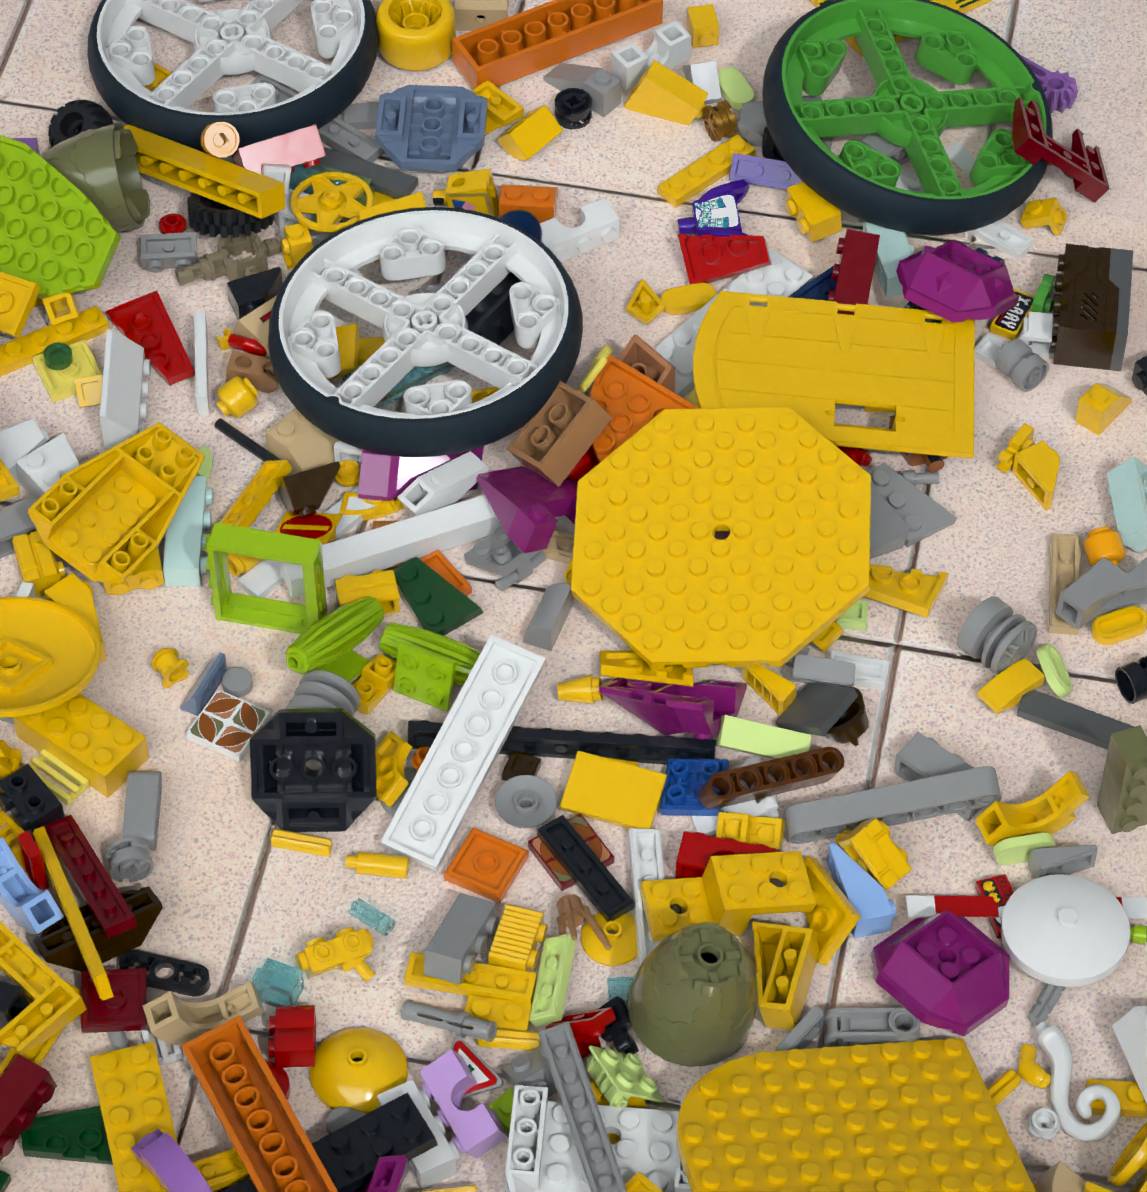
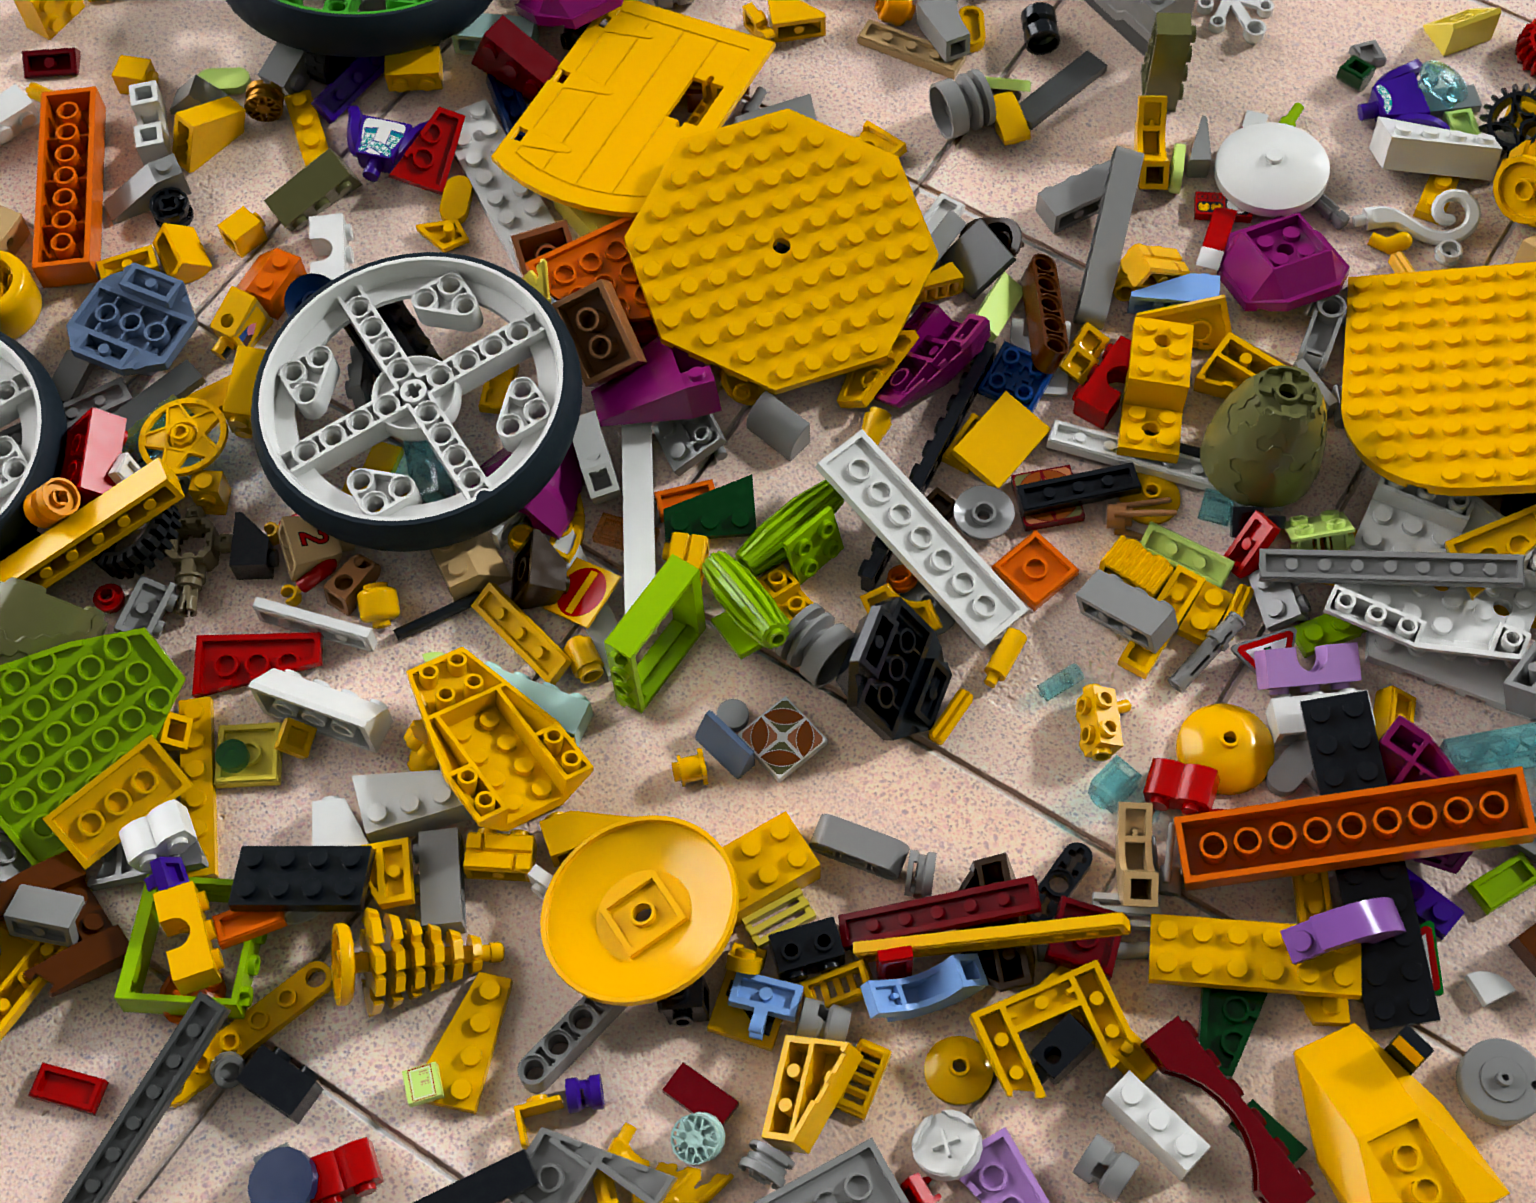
camera: 65 degrees left, 10 degrees up
(572, 164) = (243, 231): none -> yellow brick
(638, 191) = (312, 190): none -> olive wedge

